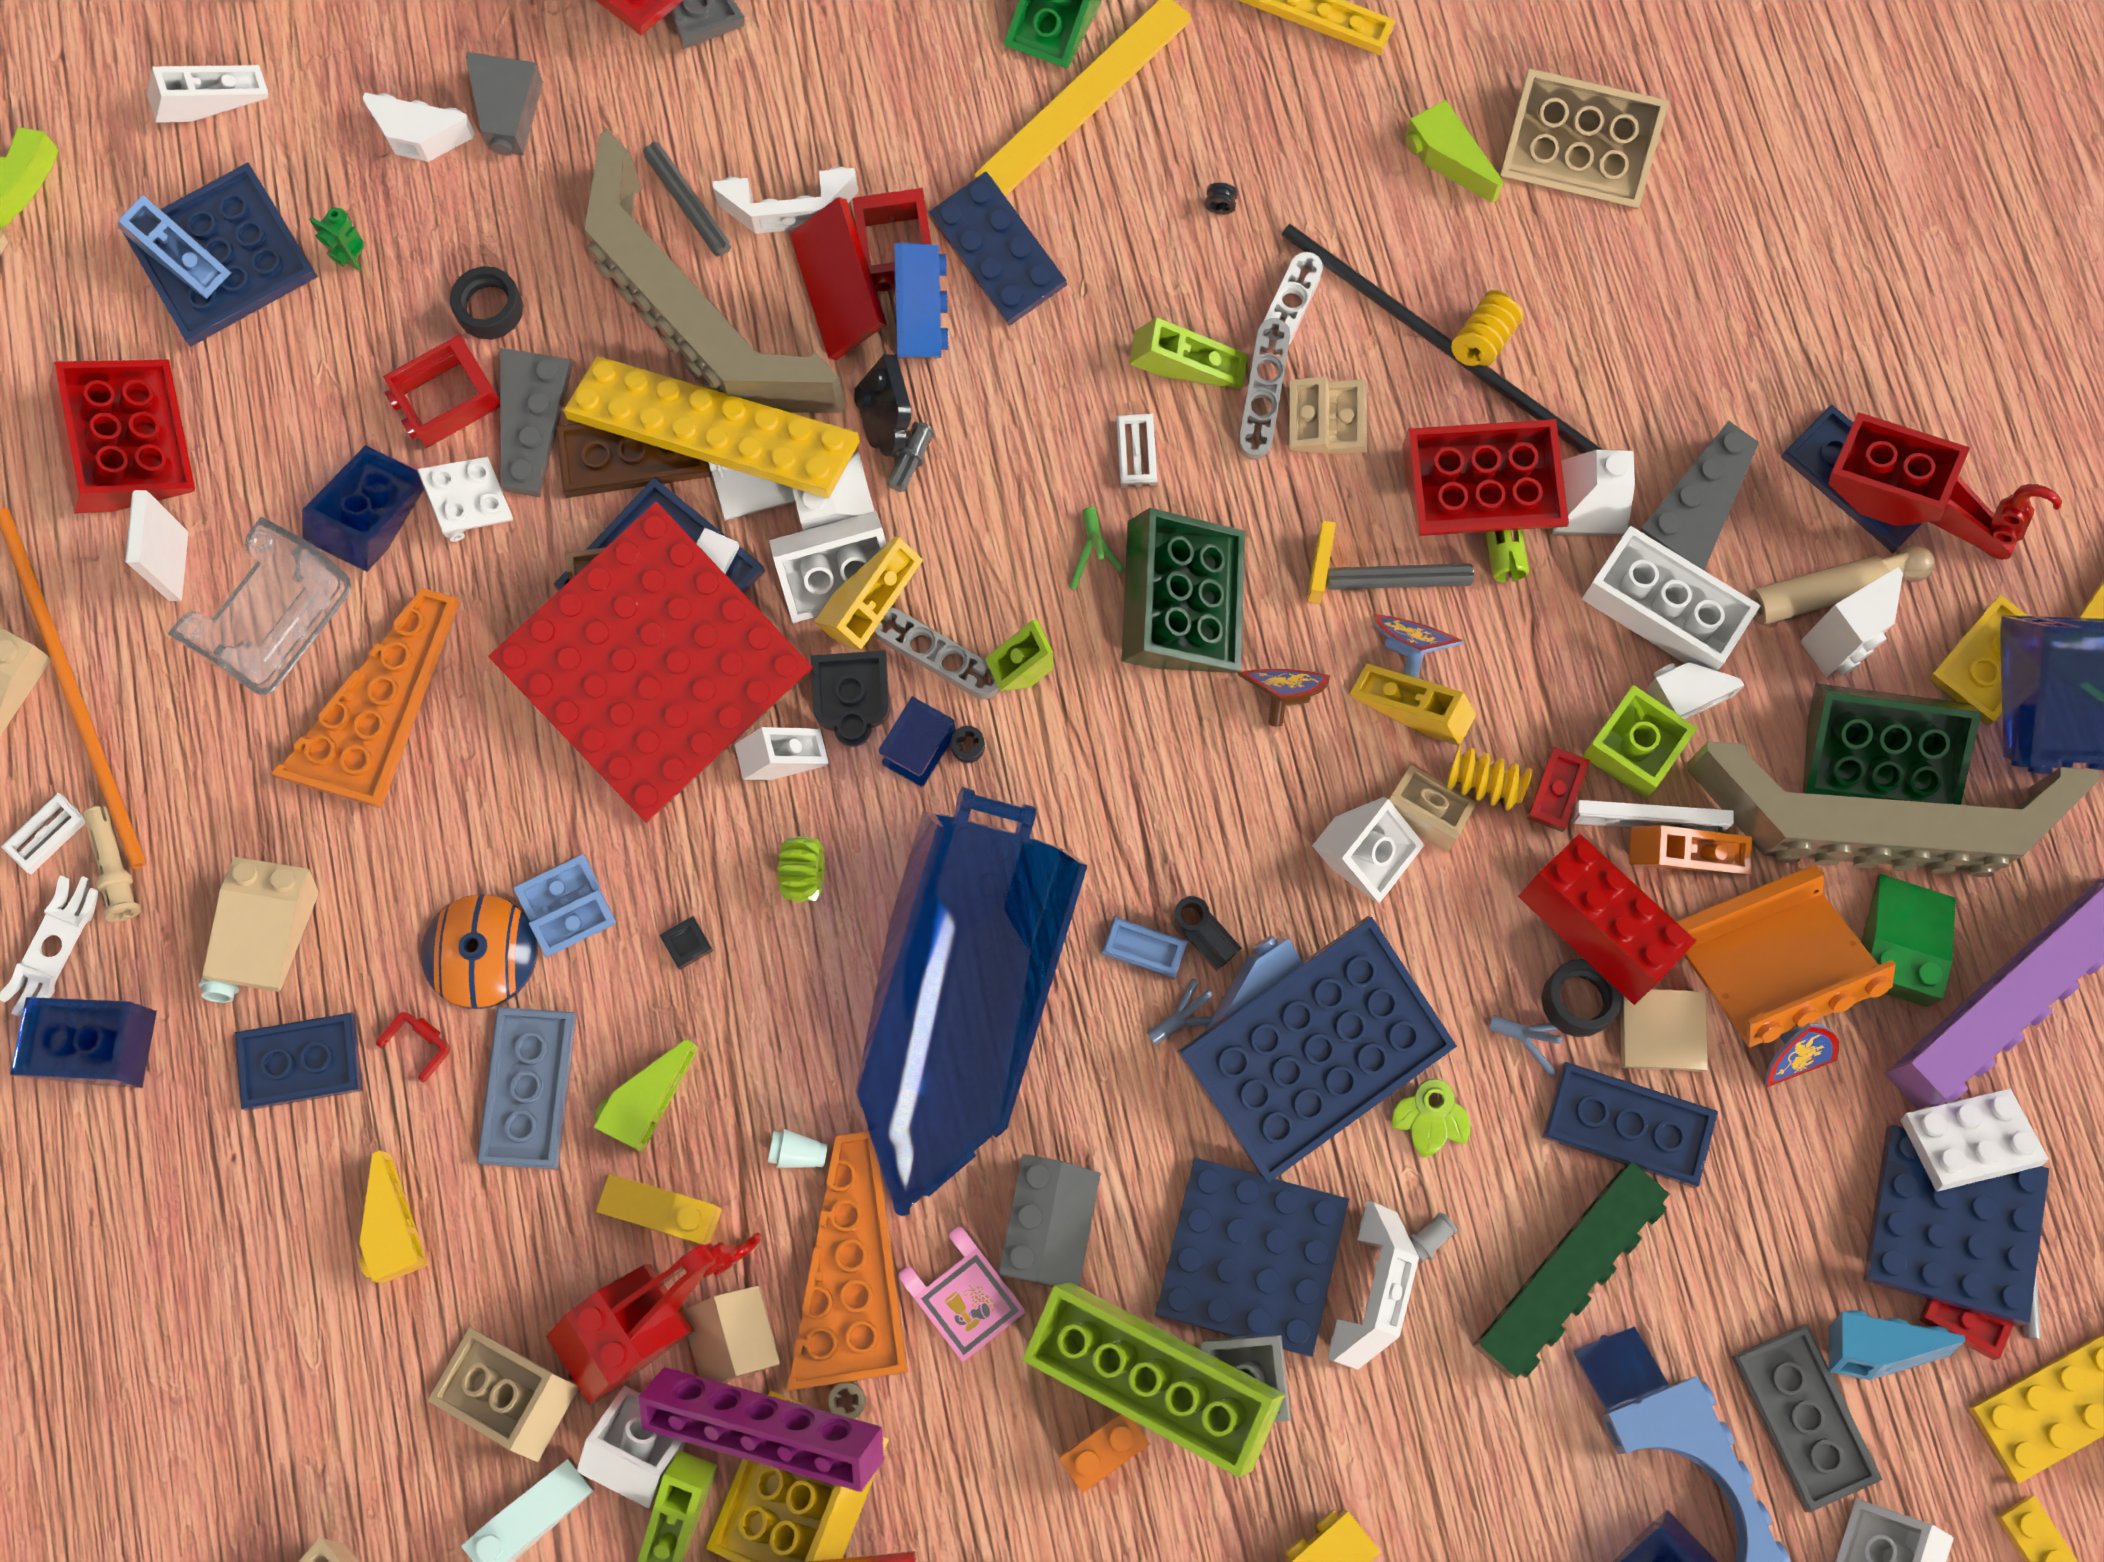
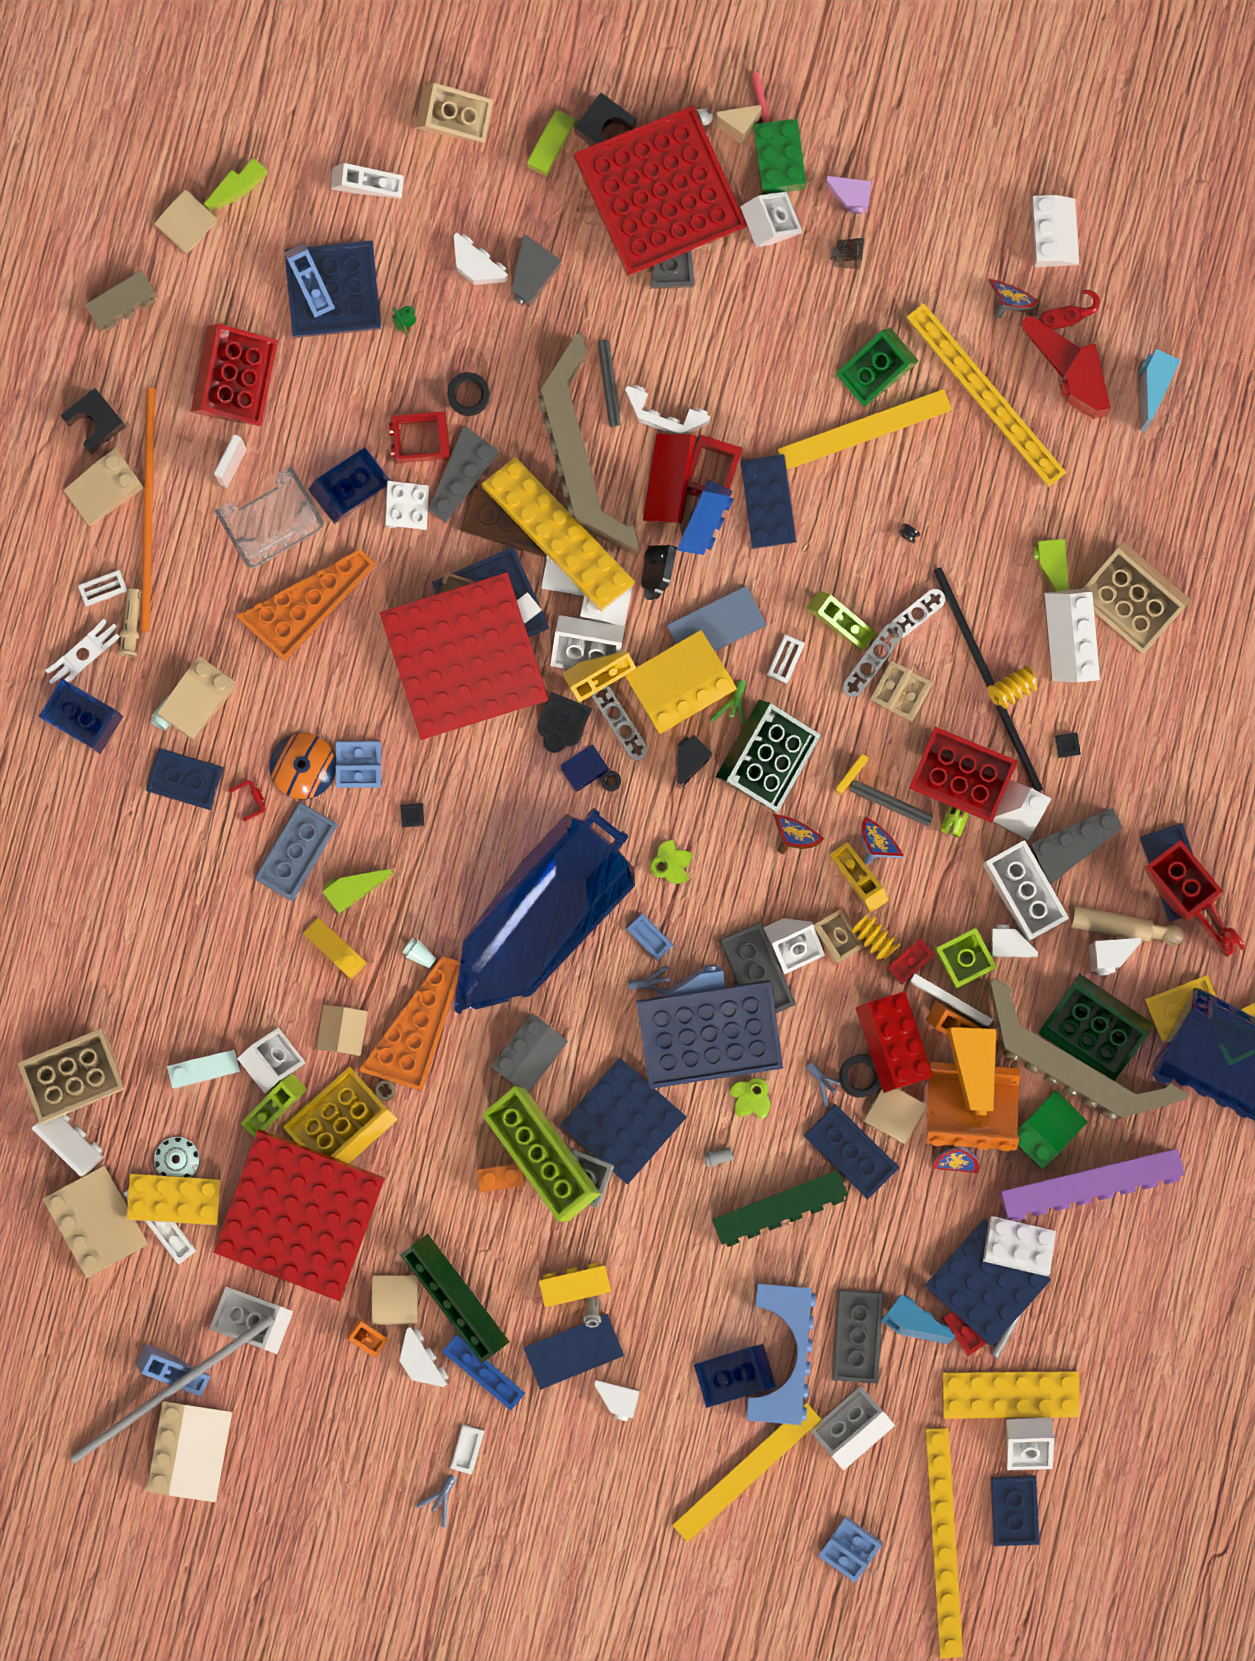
camera: 25 degrees right, 10 degrees up
(388, 1230) = (194, 893): yellow slope -> none
(503, 1395) = (217, 1002): tan slope -> none
(635, 1319) = (298, 999): red slope -> none
(762, 1428) = (338, 1083): magenta brick -> none
(780, 752) = (509, 737): white slope -> none
(801, 869) = (490, 807): lime gear -> none
(911, 456) = (660, 603): dark grey axle -> none
(967, 1301) = (468, 1071): bright pink flag -> none
(998, 549) = (680, 682): none -> yellow slope
(1010, 451) = (721, 620): none -> sand blue tile
(1021, 659) = (659, 751): lime slope -> none
(1074, 643) = (690, 759): none -> black slope
(1124, 817) = (674, 861): none -> lime plate
(1207, 936) = (684, 947): black piece -> none
(1323, 904) = (755, 961): none -> dark grey tile
(1393, 1279) = (681, 1172): white slope -> none
(1531, 218) = (1072, 635): none -> white slope
(1606, 378) = (1067, 745): none -> black tile
(1621, 1369) = (777, 1266): clear blue piece -> none
(1754, 890) = (975, 1065): none -> light orange slope

